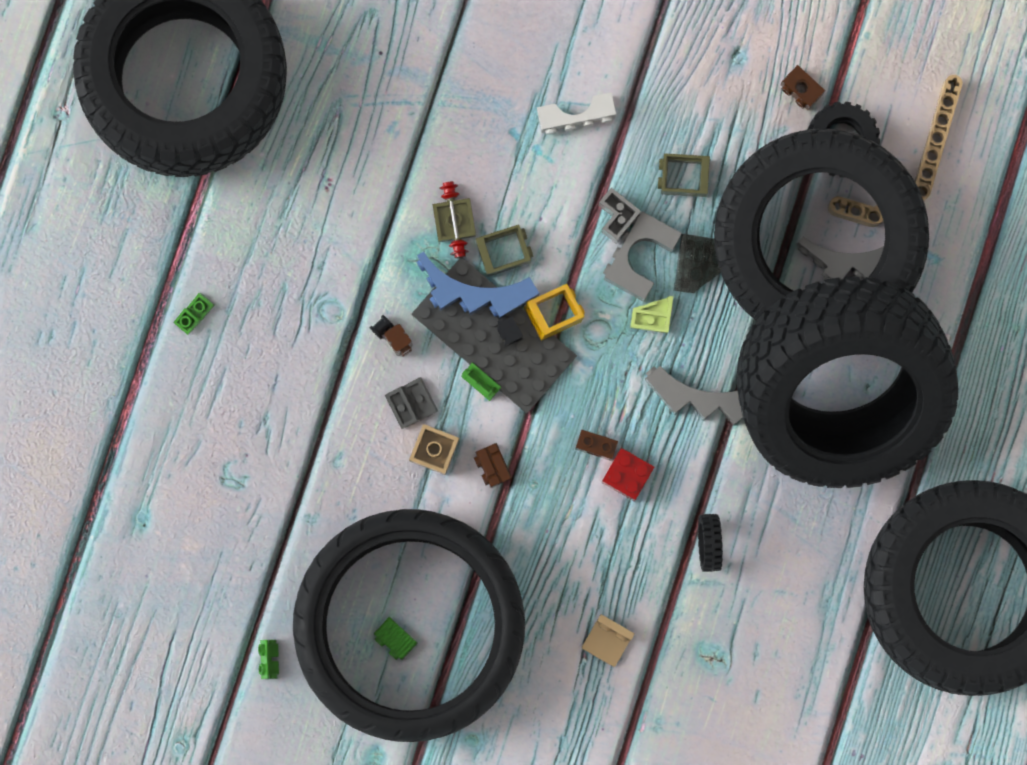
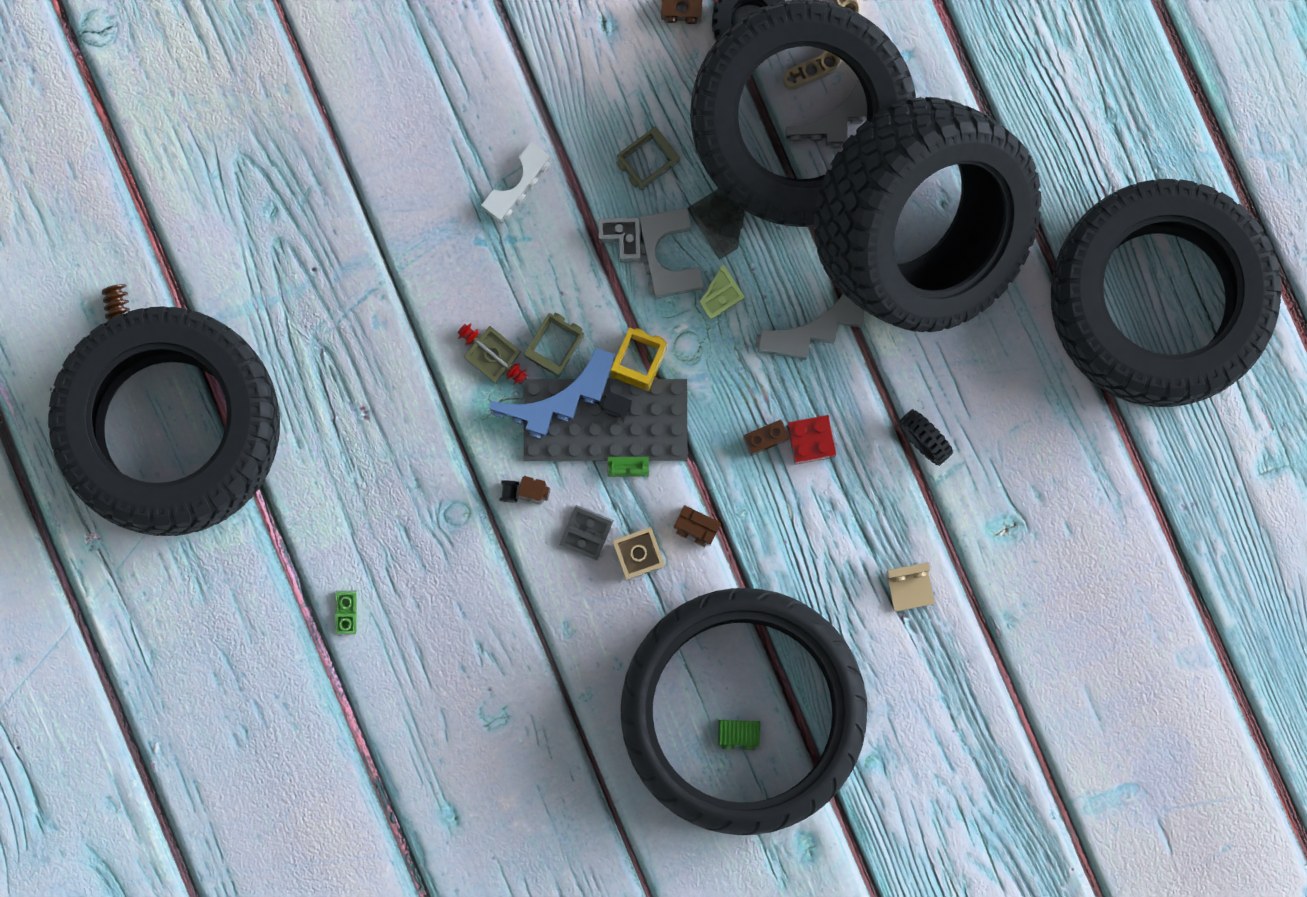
camera: 40 degrees left, 0 degrees up
(267, 666) = (643, 832): bright green hinge -> none

